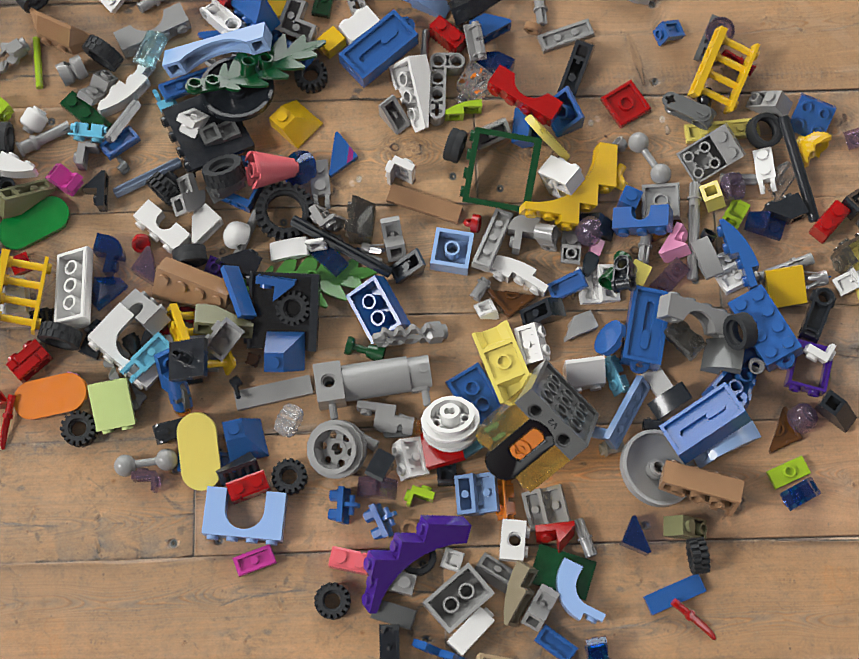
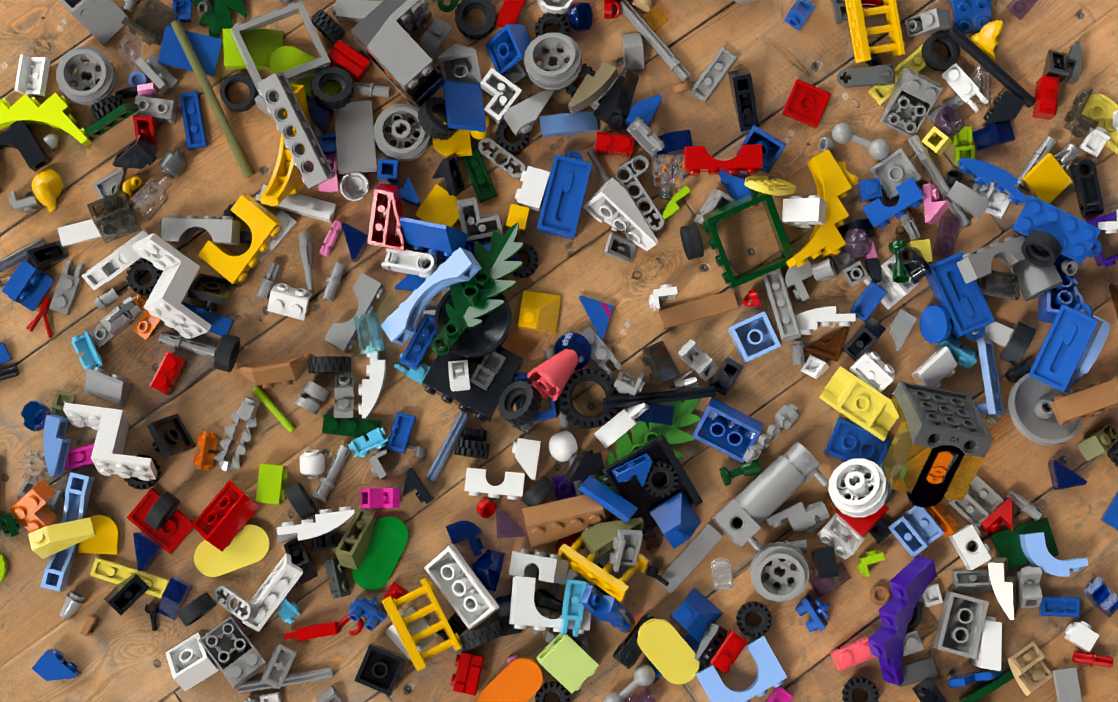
camera: 35 degrees left, 10 degrees up
(122, 121) = (390, 412): flat silver axle -> none
(188, 359) = (614, 587): black tile -> none
(190, 197) = (503, 442): light grey brick -> none
(383, 518) = (855, 601): blue hips -> none

